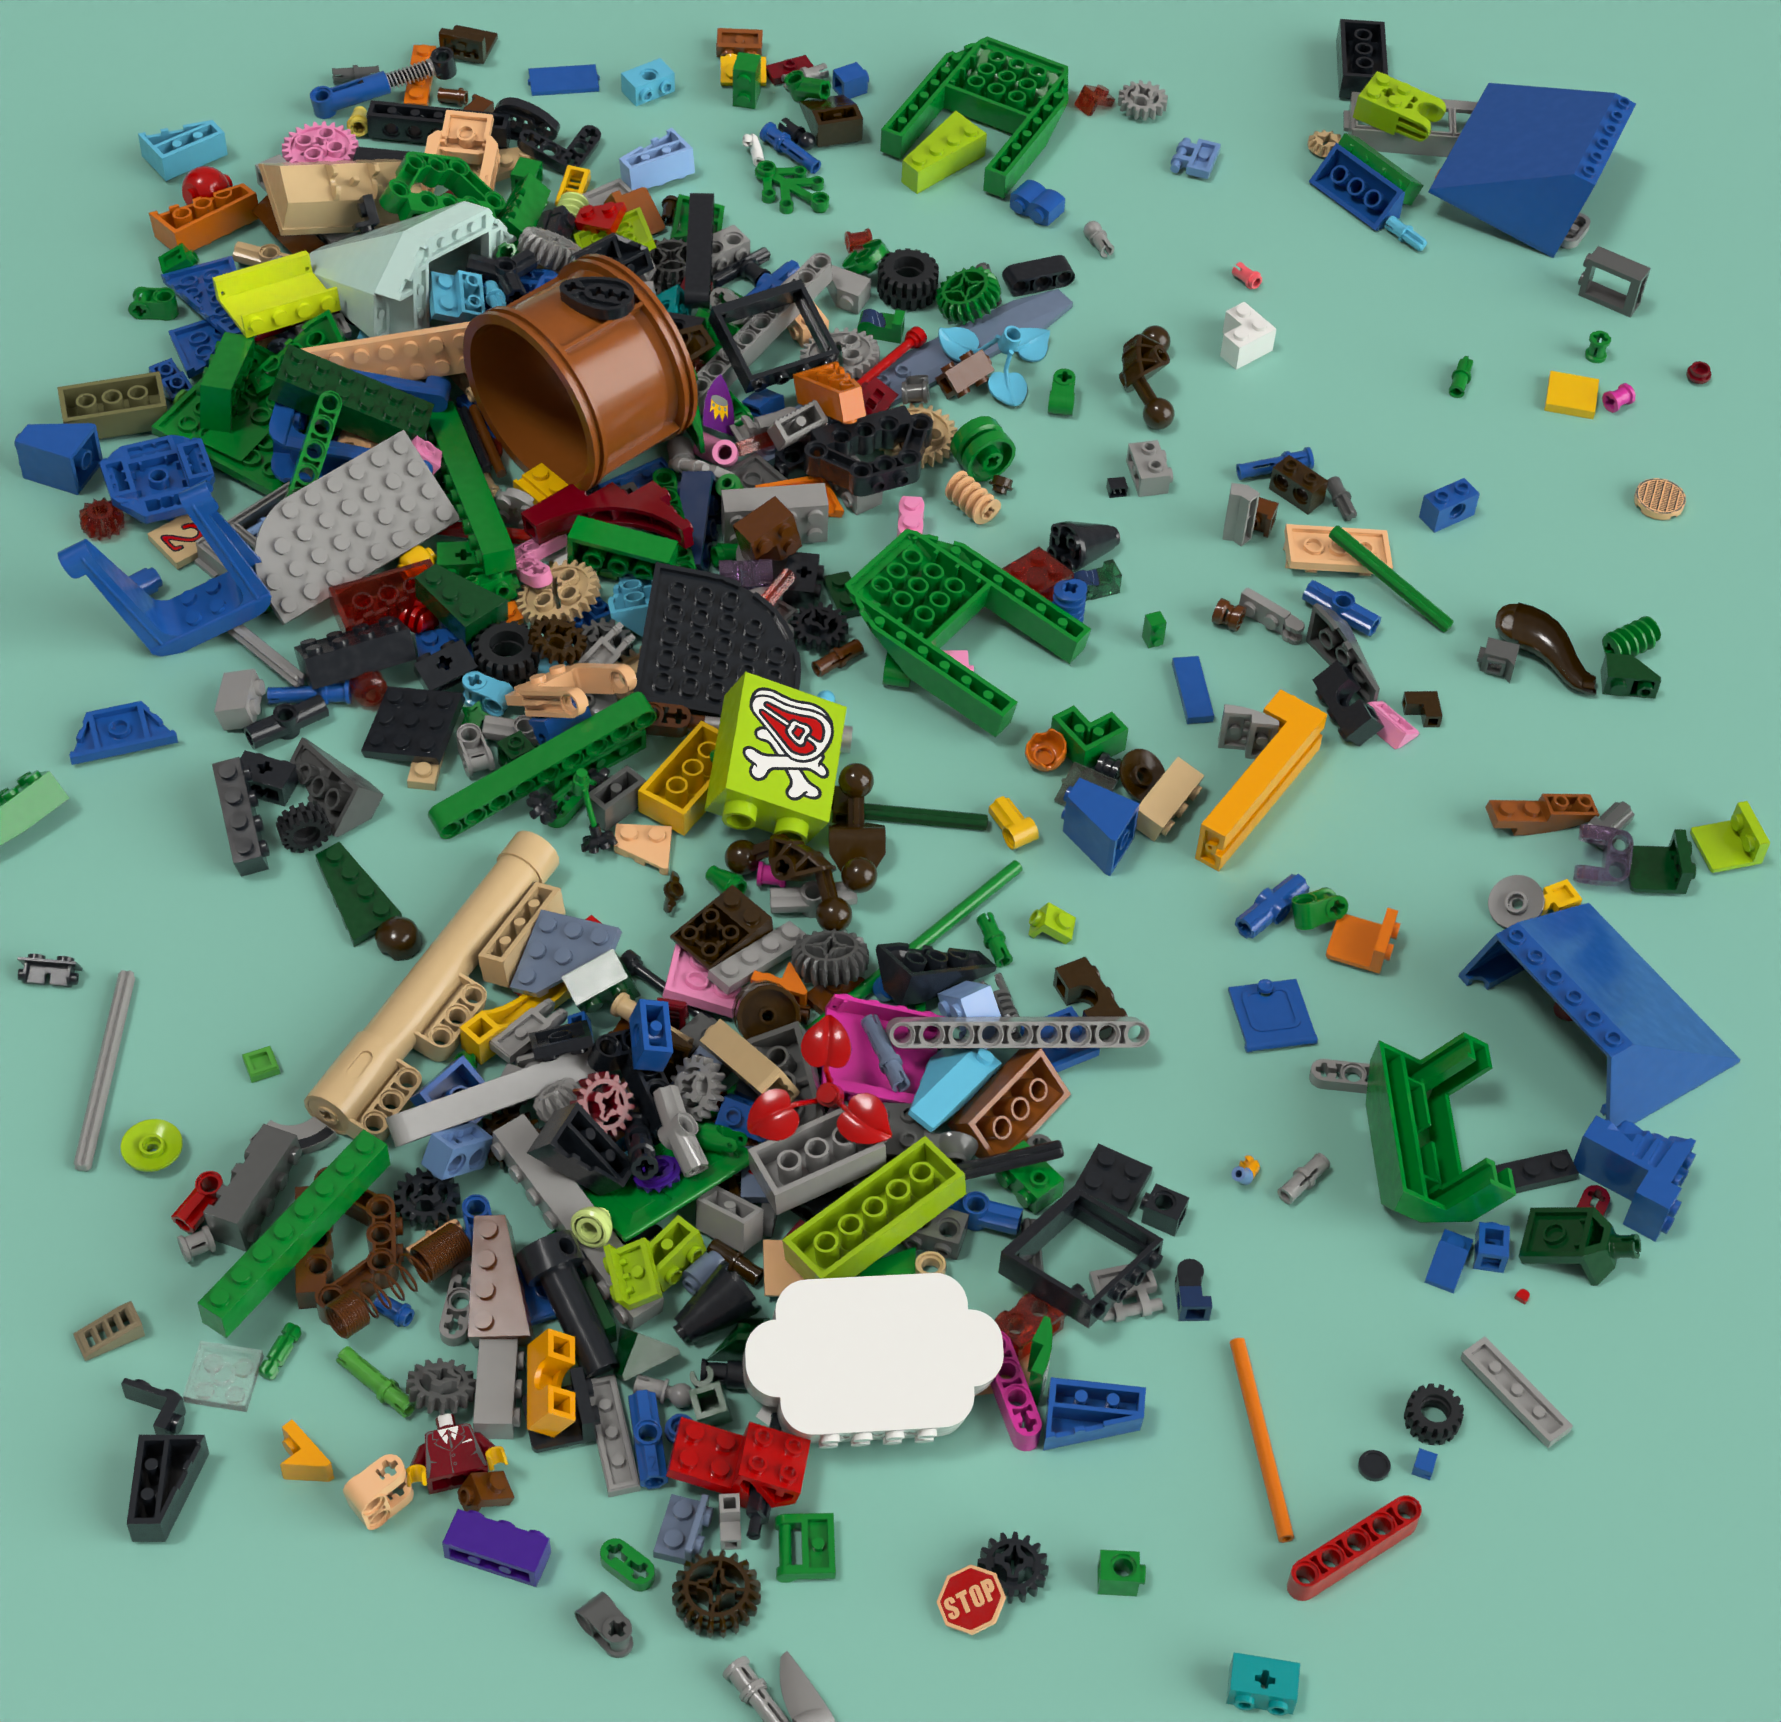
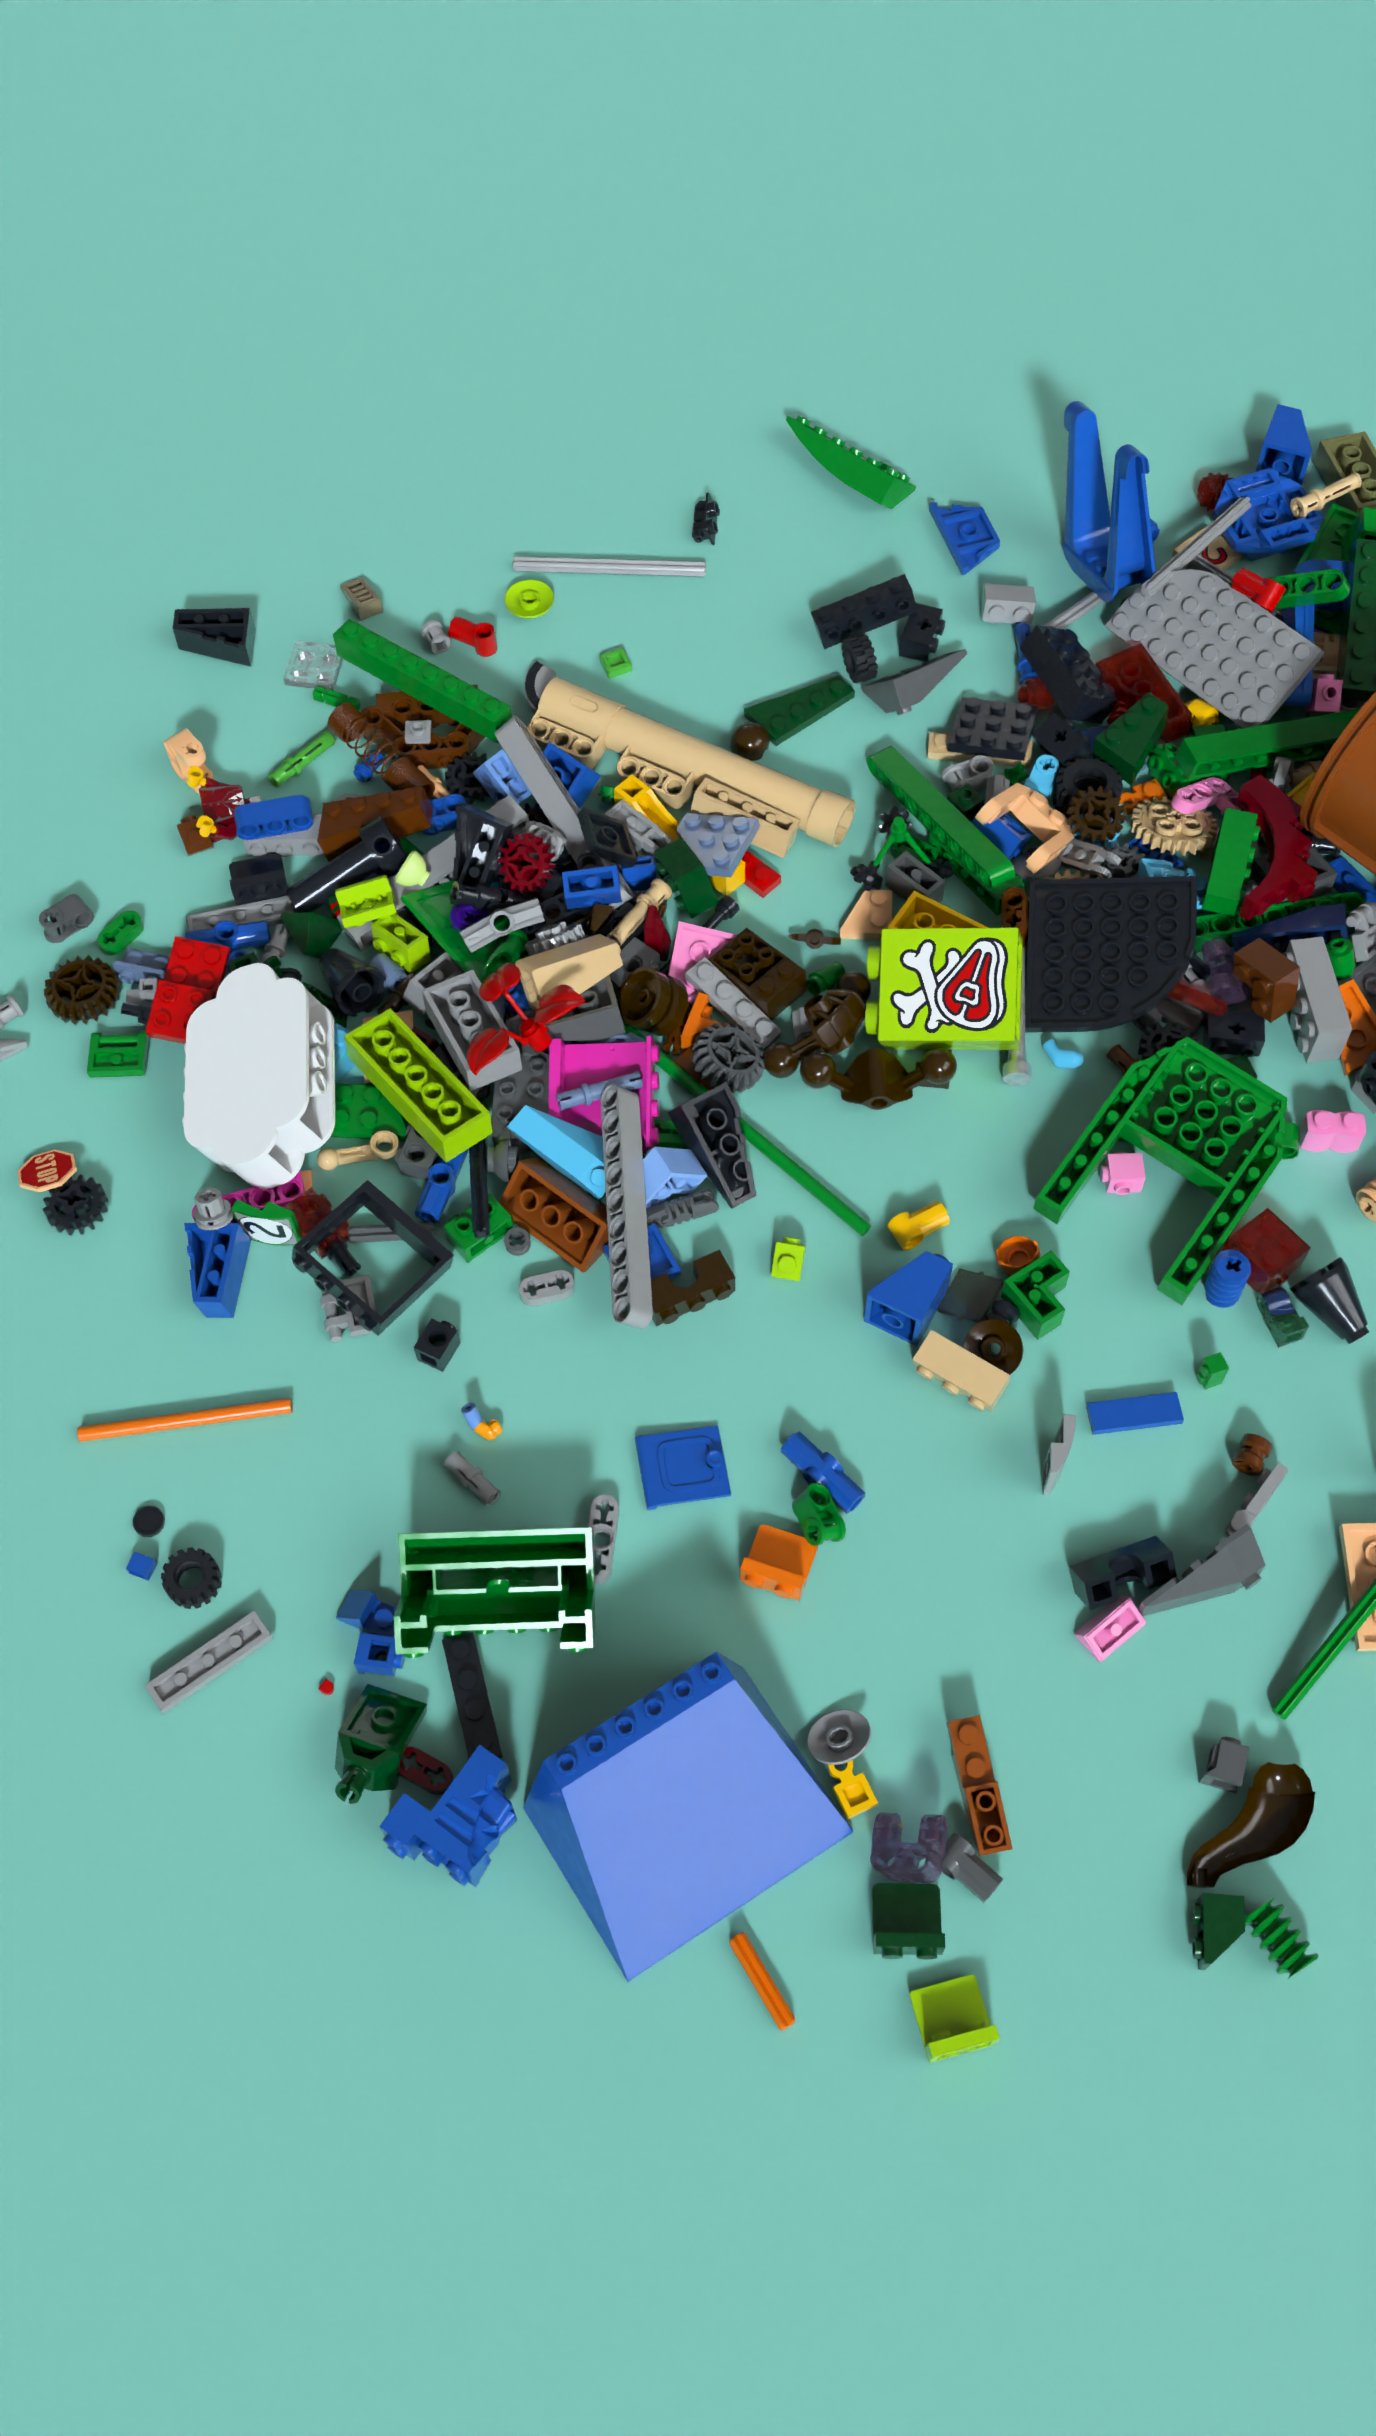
camera: 95 degrees right, 10 degrees up
(153, 431) = (1316, 498): none -> tan pin
(168, 1401) = (284, 637): black bracket -> none
(173, 503) = (1196, 546): none -> light grey axle
(253, 1188) = (479, 658): dark grey wedge -> none
(286, 721) = (989, 641): black piece -> none
(305, 1458) = (237, 721): light orange slope -> none
(319, 463) = (1261, 591): none -> red piece
(363, 1245) = (418, 732): none -> light grey bracket
(440, 1386) = (282, 784): dark grey gear -> none
(492, 1382) = (273, 817): none -> blue beam
(497, 1547) = (142, 844): dark purple brick -> none
(548, 1405) = (260, 860): light orange arch -> none
(925, 816) = (924, 1144): dark green axle -> none
(994, 939) = (768, 1206): green pin -> none
(1045, 1406) = (219, 1210): none -> light grey piece
(1086, 1124) = (546, 1288): none -> light grey beam
(1111, 1583) = (58, 1277): green brick -> none
(1114, 1179) = (479, 1304): black plate -> none
(1188, 1290) = (344, 1363): dark blue leg -> none
(1264, 779) = (1014, 1484): light orange brick -> none
(1344, 605) = (1273, 1596): blue piece -> none
(1349, 1560) = (65, 1498): red beam -> none
(1424, 704) = (1142, 1670): dark brown piece -> none
(1722, 966) = (762, 1981): none -> orange axle

